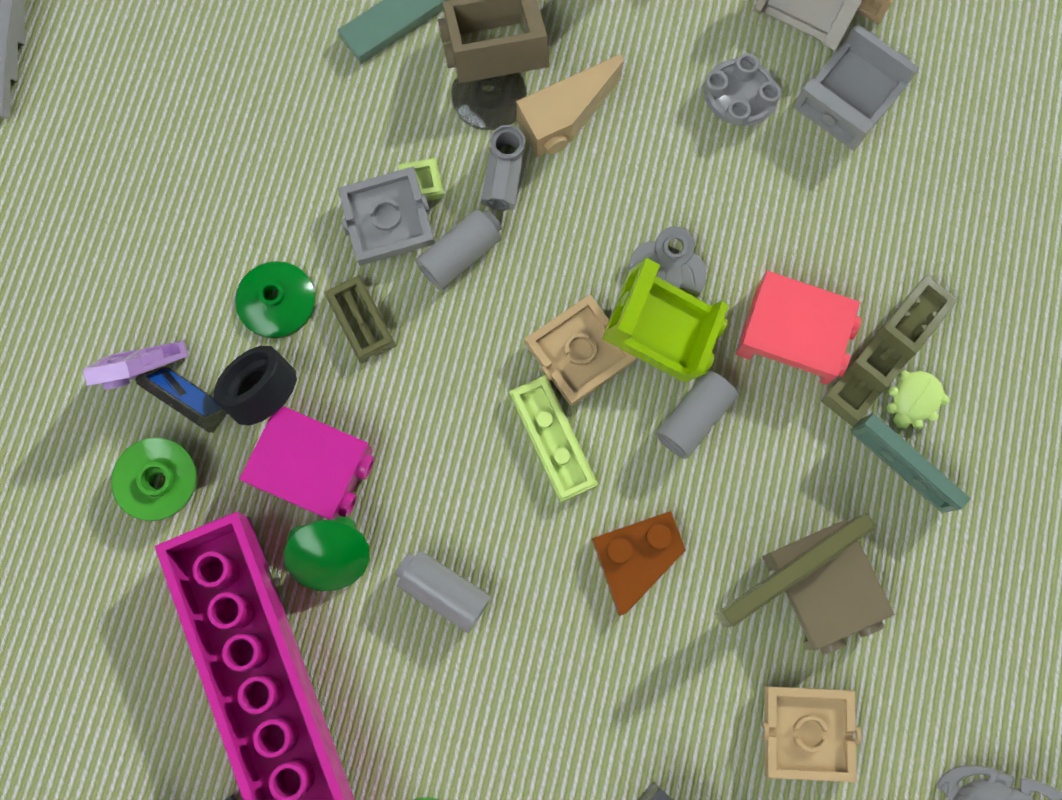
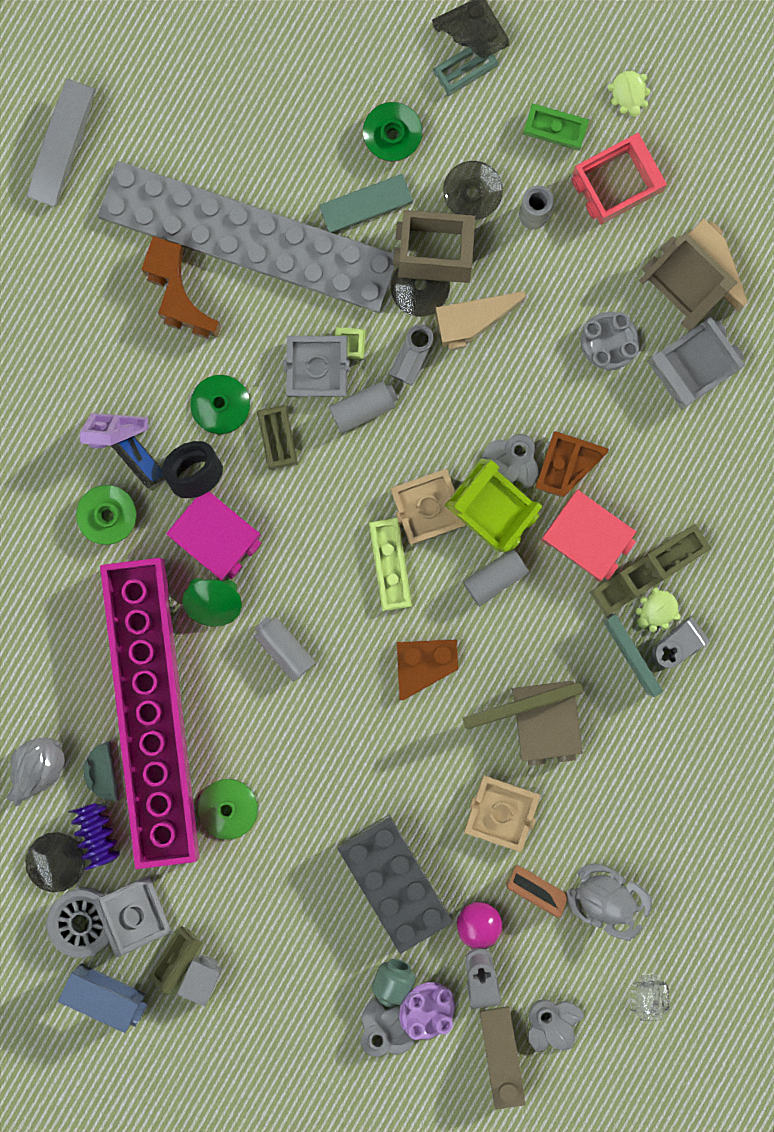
camera: 20 degrees right, 10 degrees up
(159, 150) = (164, 266): none -> dark orange arch
(258, 91) = (248, 236): none -> light grey plate
(739, 247) = (567, 463): none -> dark orange wing
(961, 434) = (683, 641): none -> light grey piece

